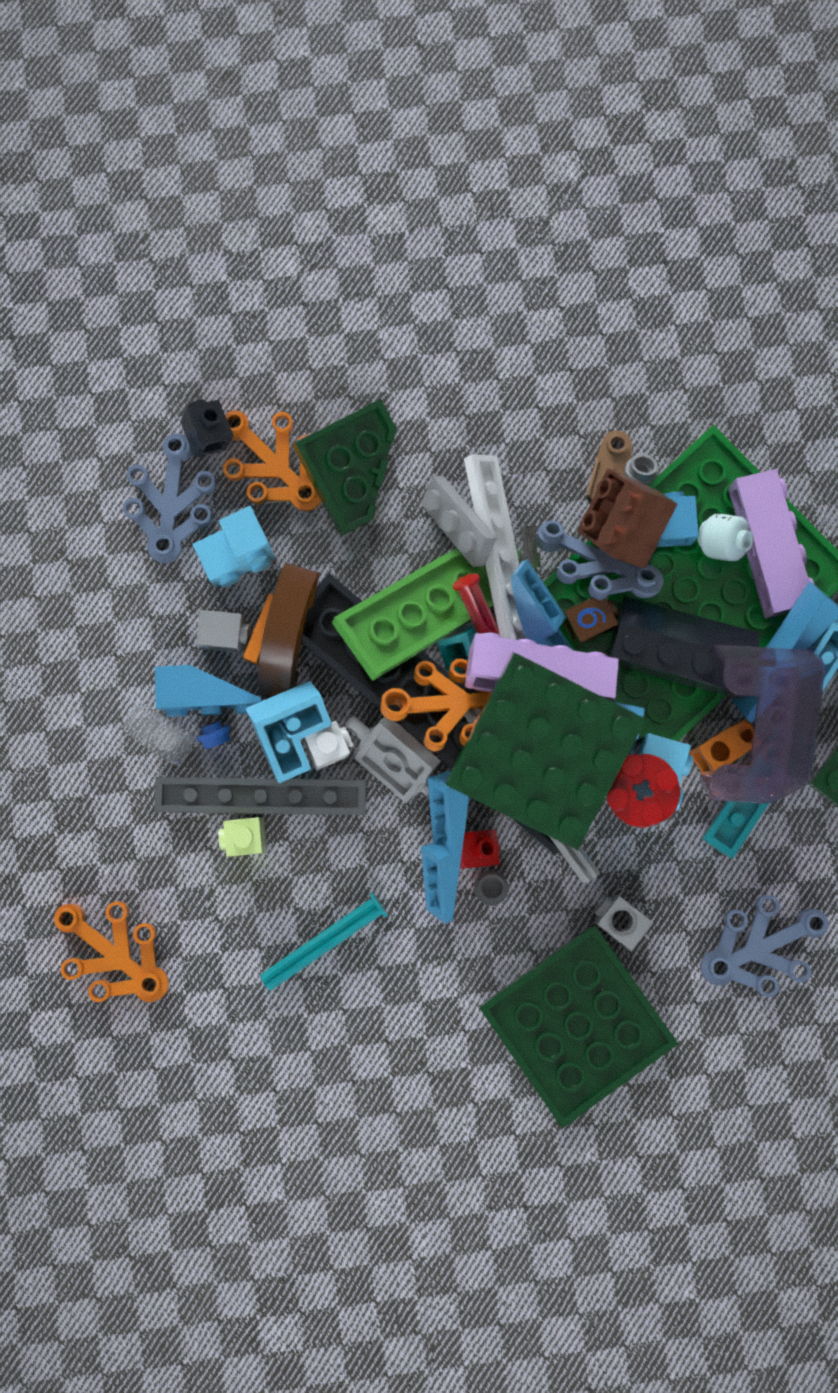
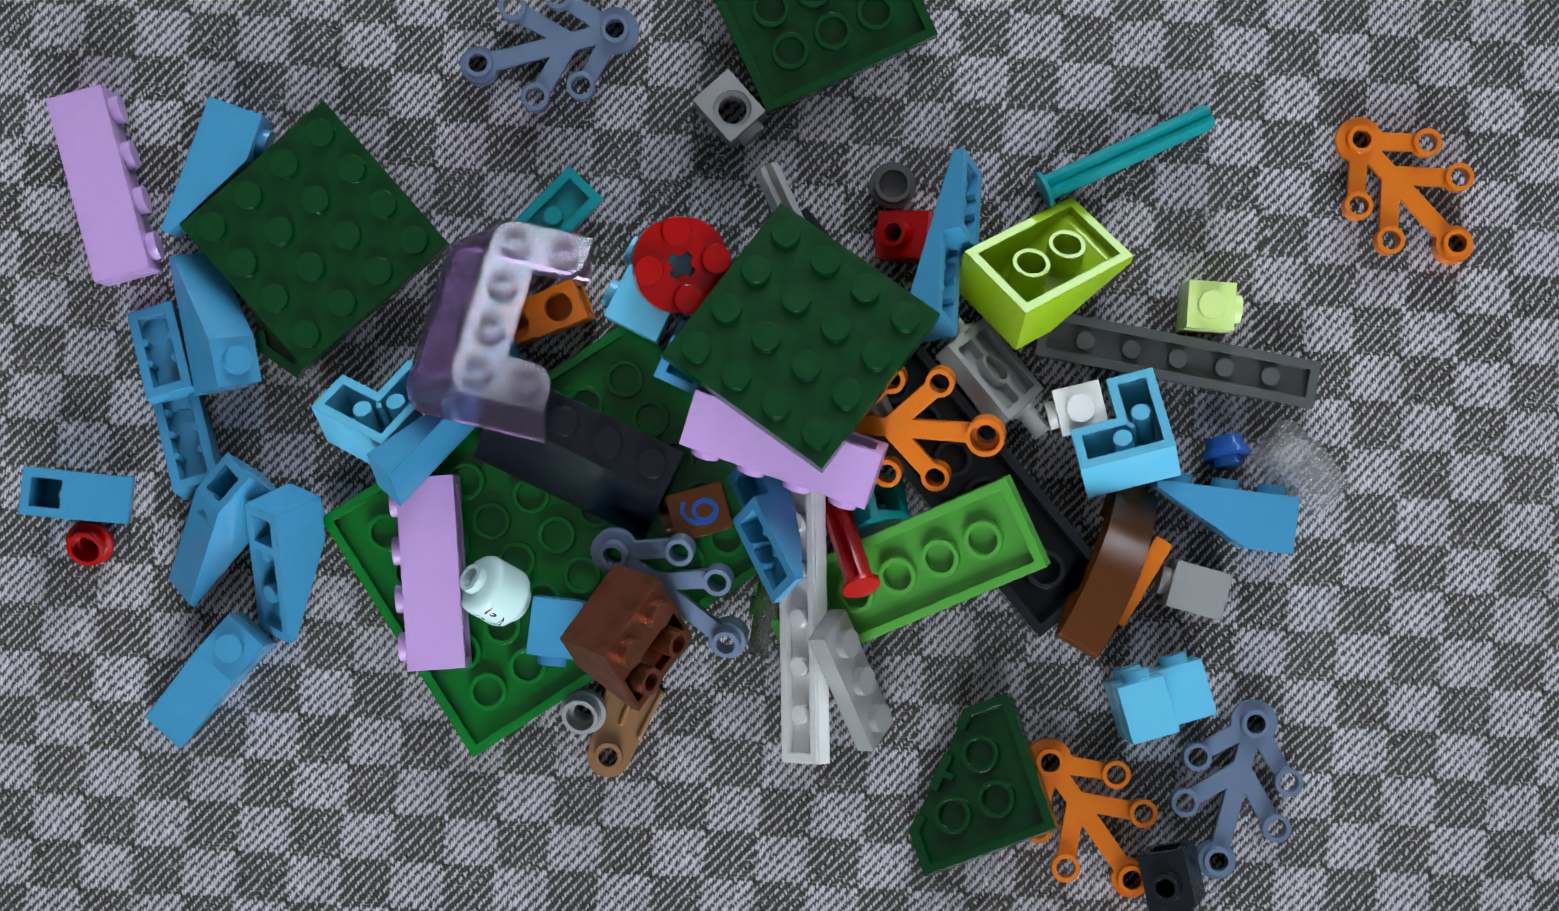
camera: 175 degrees left, 5 degrees up
(371, 841) = (1040, 271): none -> lime slope

